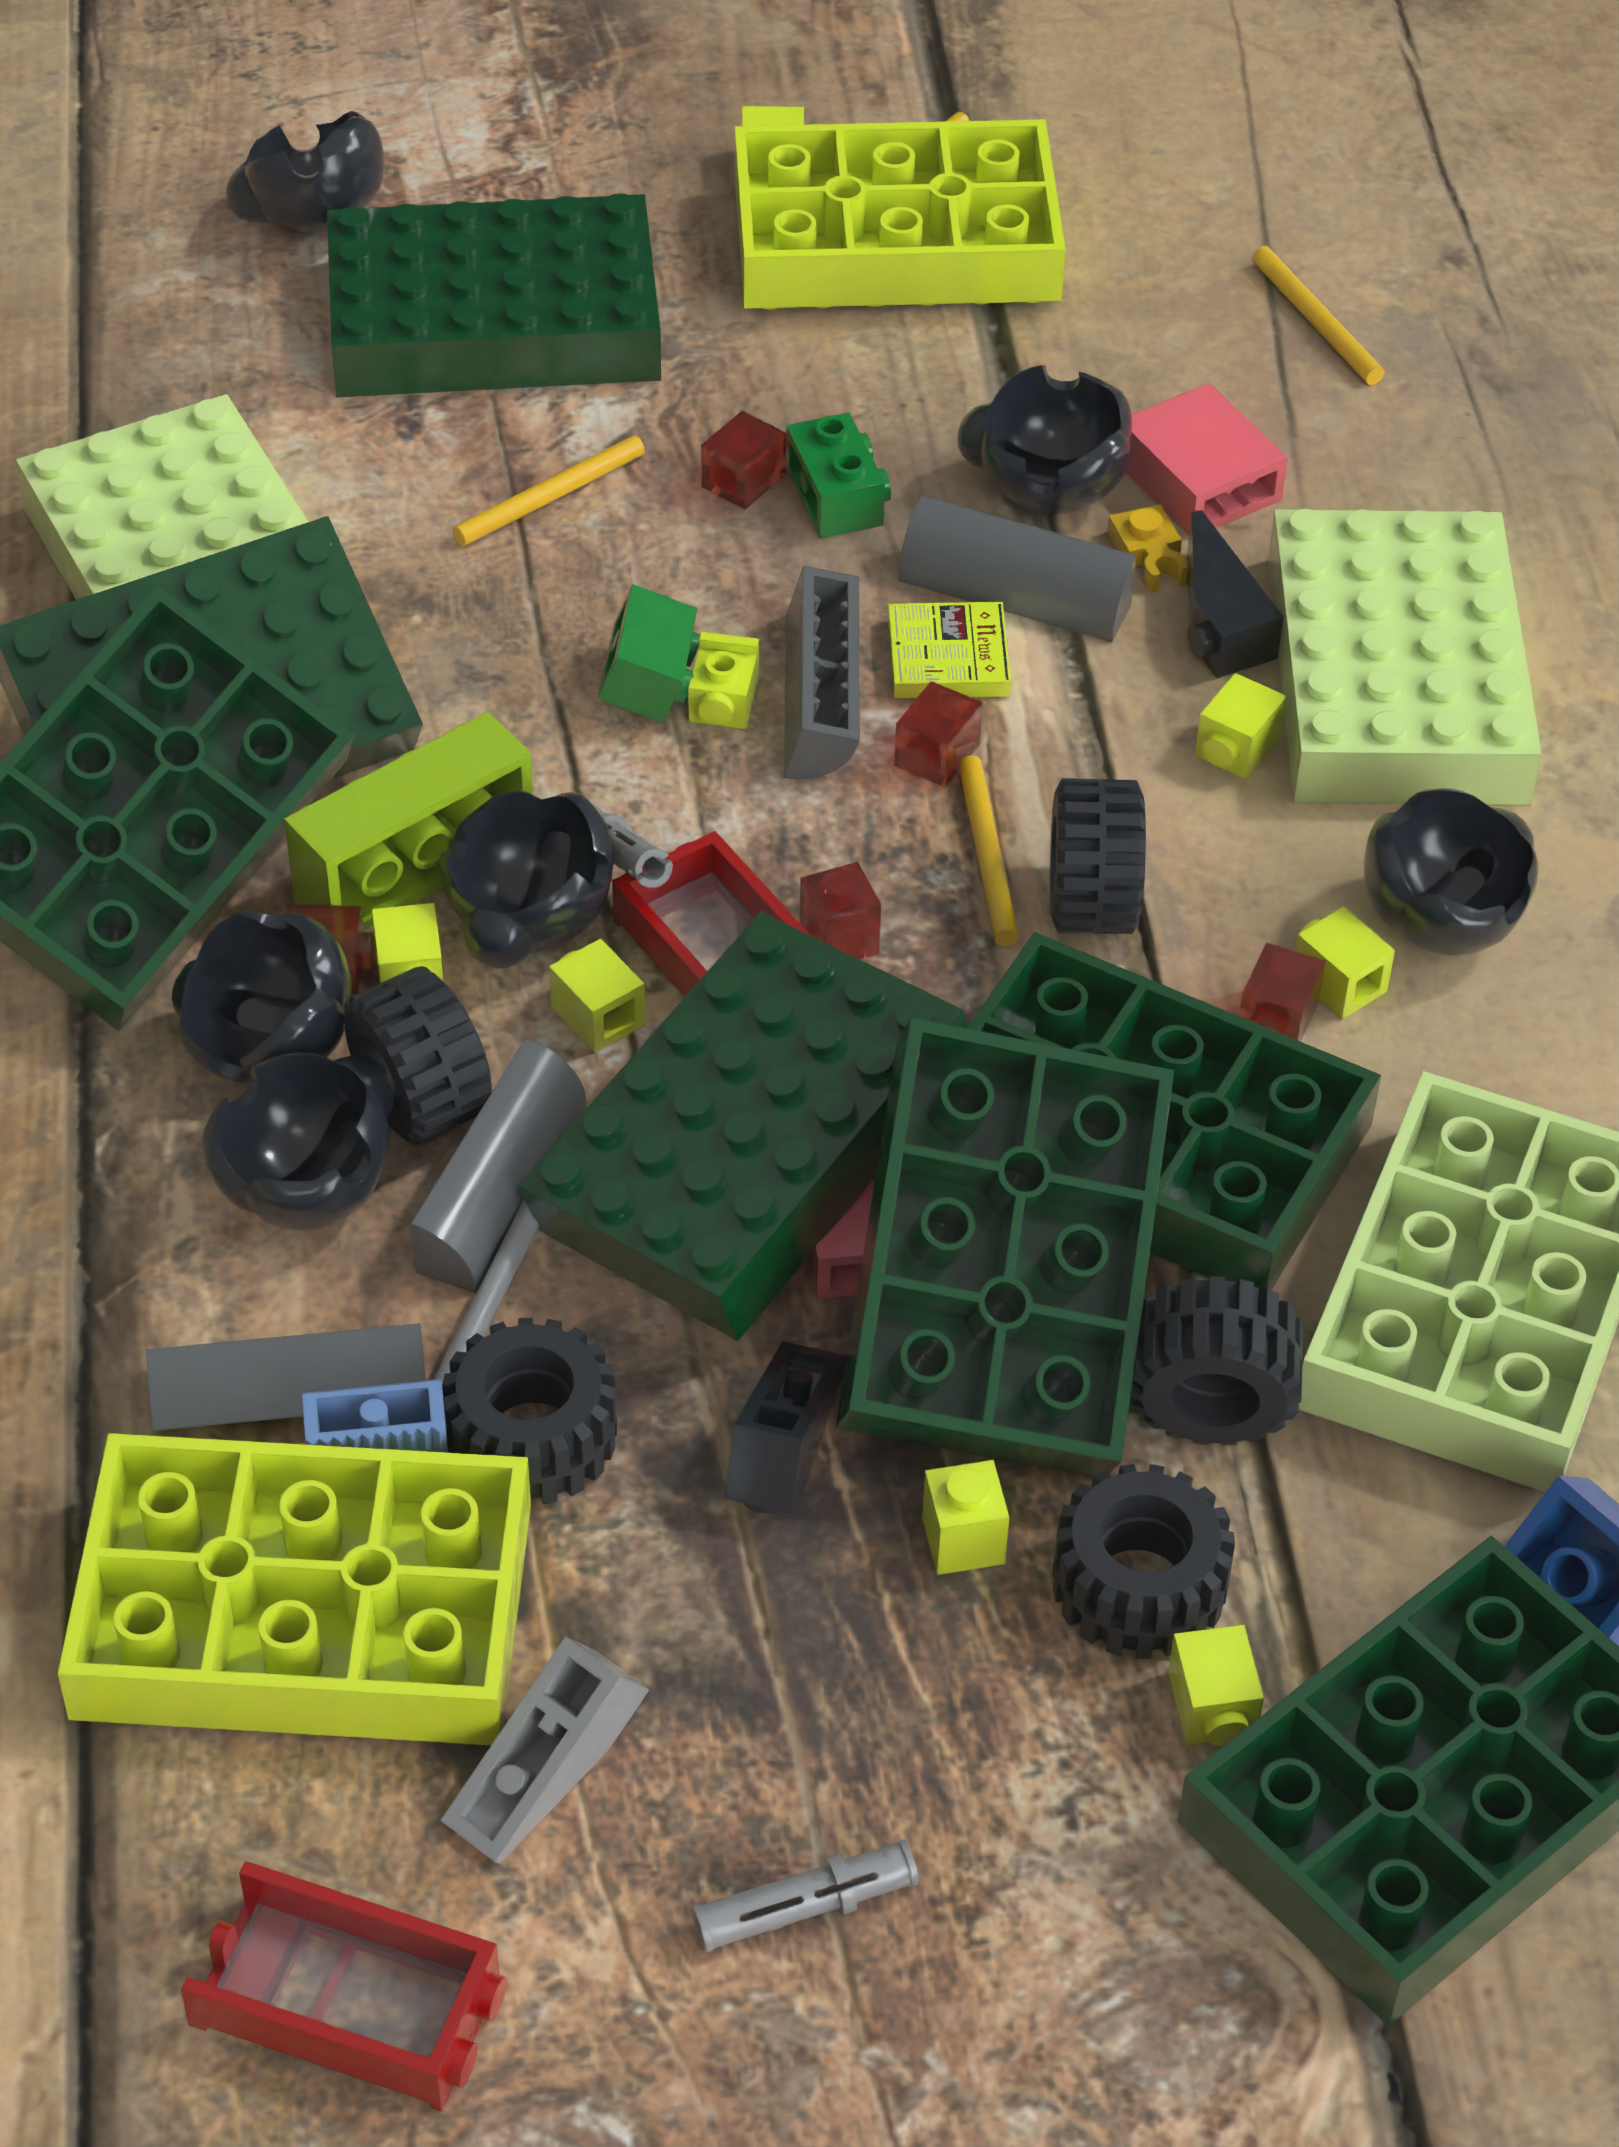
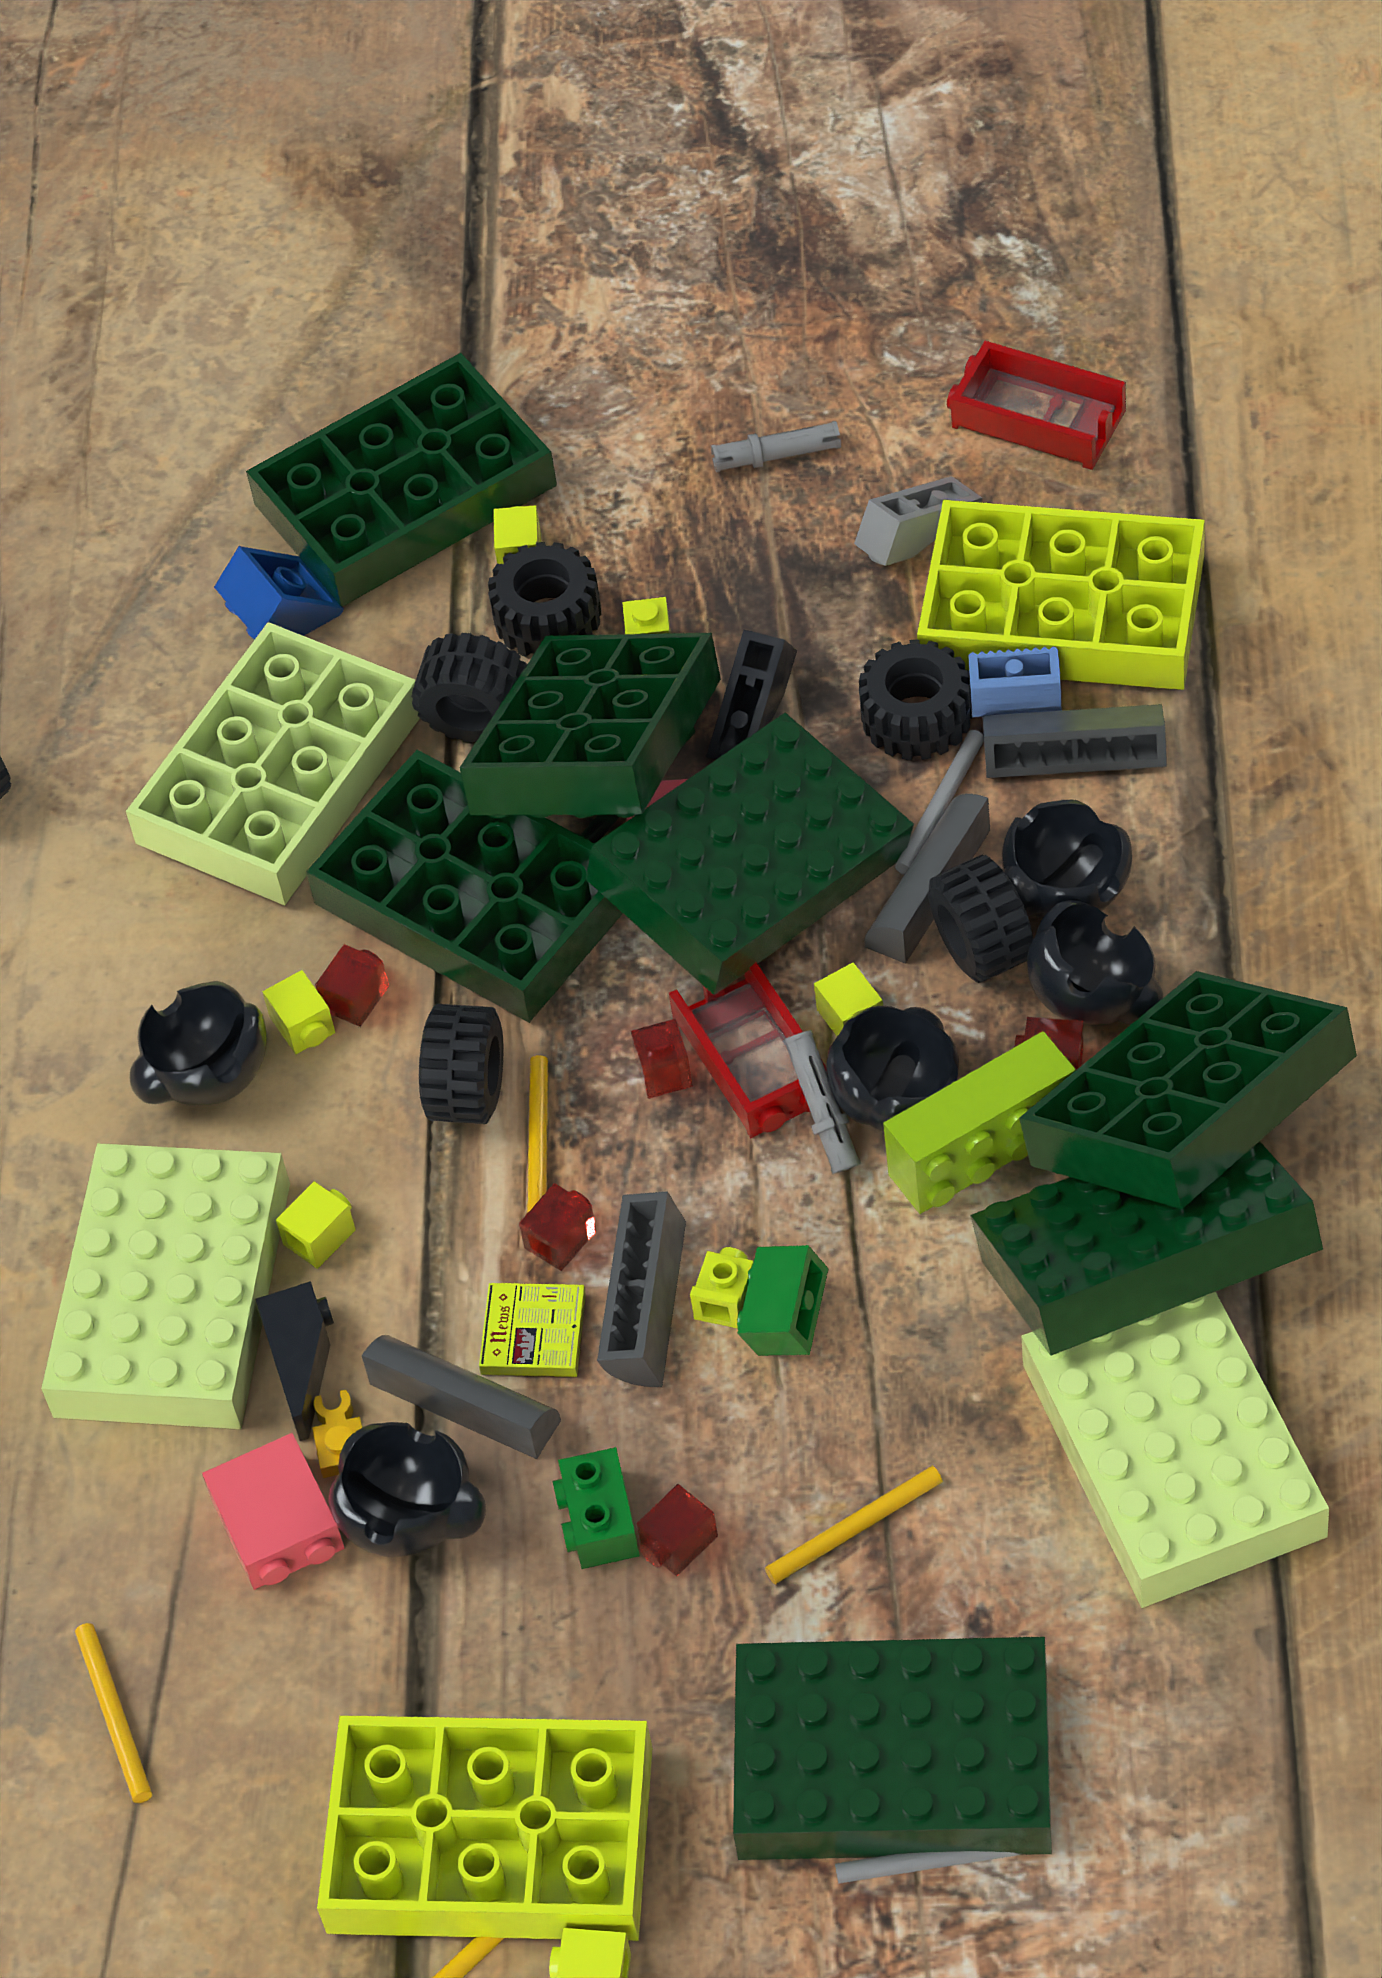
camera: 165 degrees left, 5 degrees up
(298, 185) = (1067, 1891): black piece -> none
(406, 940) = (986, 1034): neon yellow brick -> none

